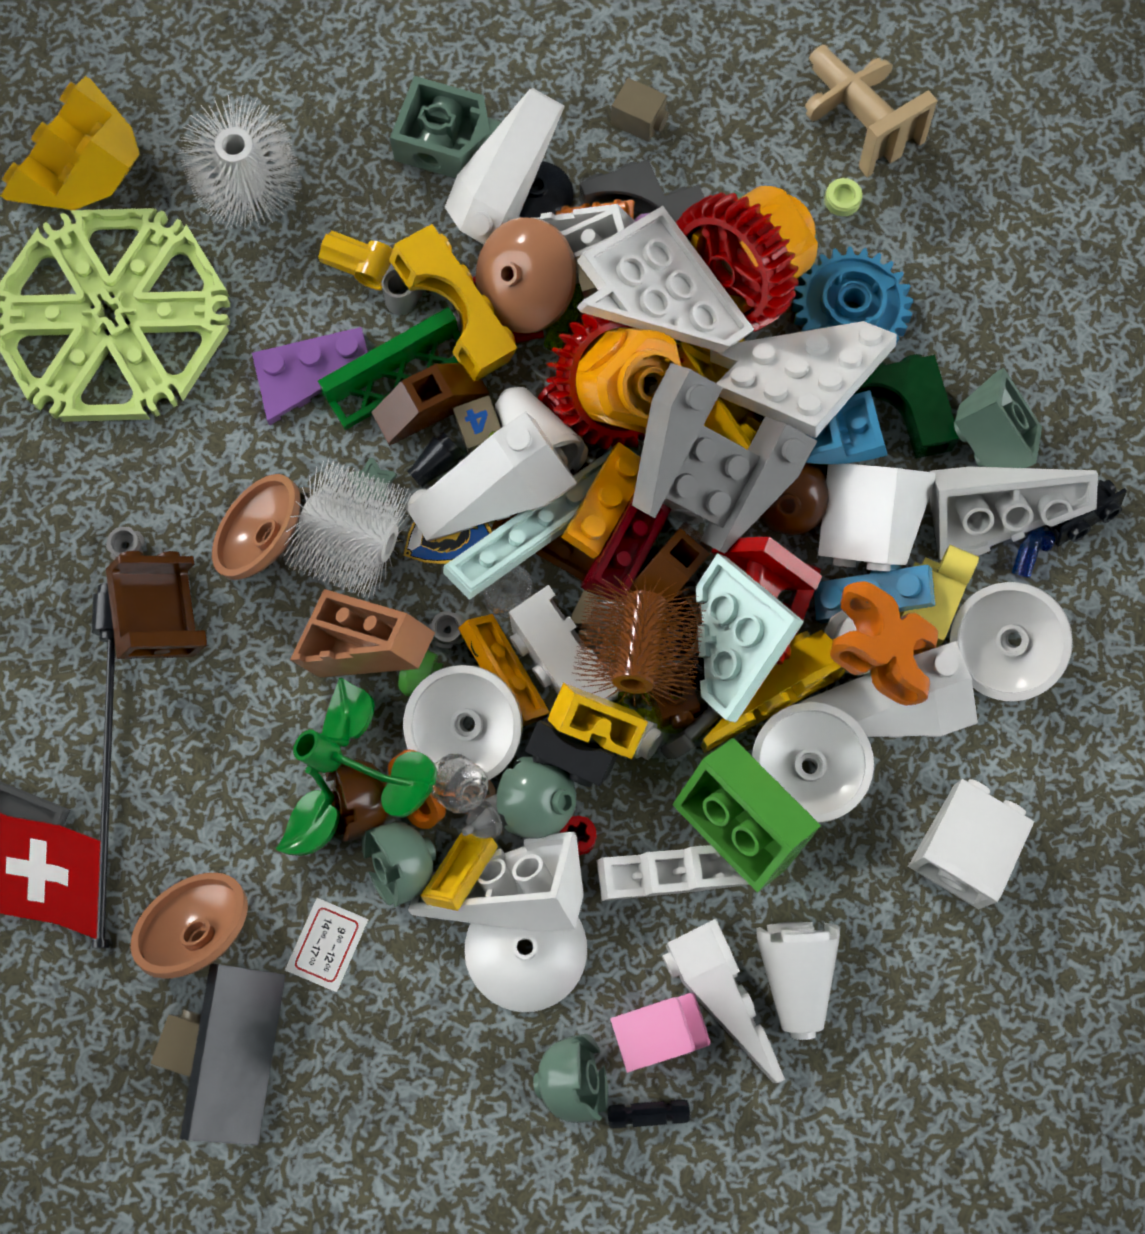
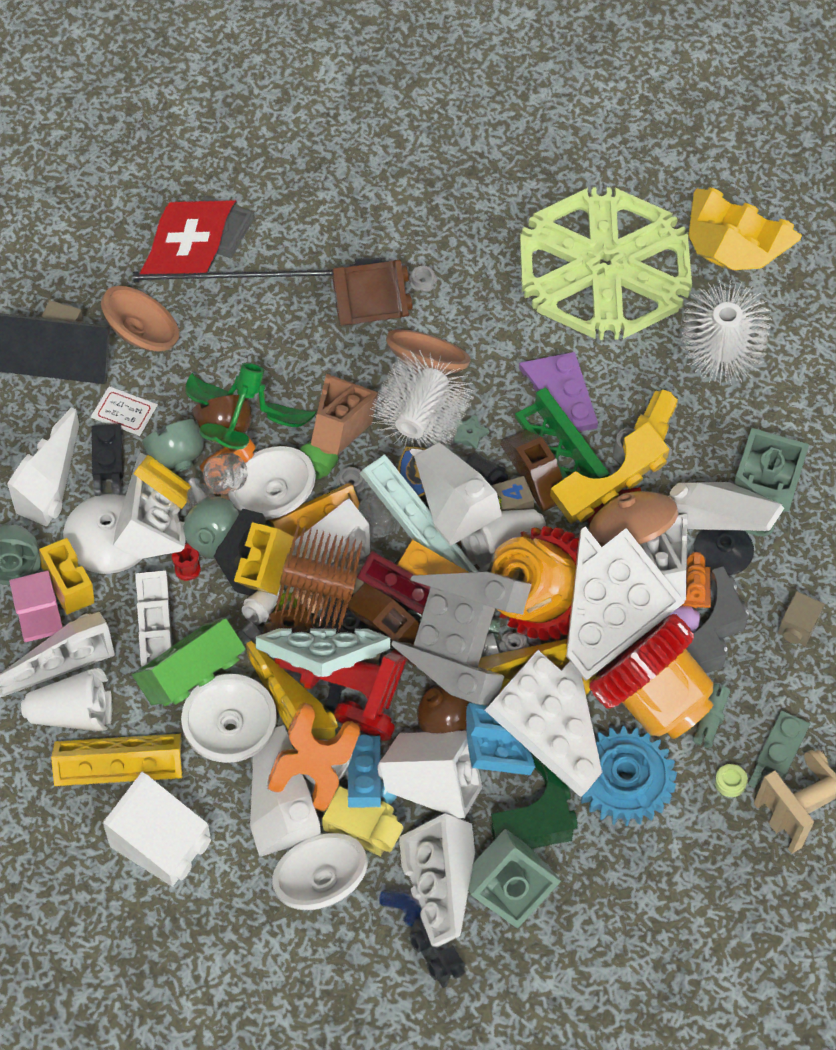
camera: 90 degrees right, 15 degrees down
(407, 960) = (107, 457): none -> black hinge
(457, 1042) = (41, 479): none -> white wedge
(625, 990) = (68, 580): none -> yellow brick
(806, 146) = (780, 747): none -> sand green hinge
(876, 908) = (116, 759): none -> yellow fence

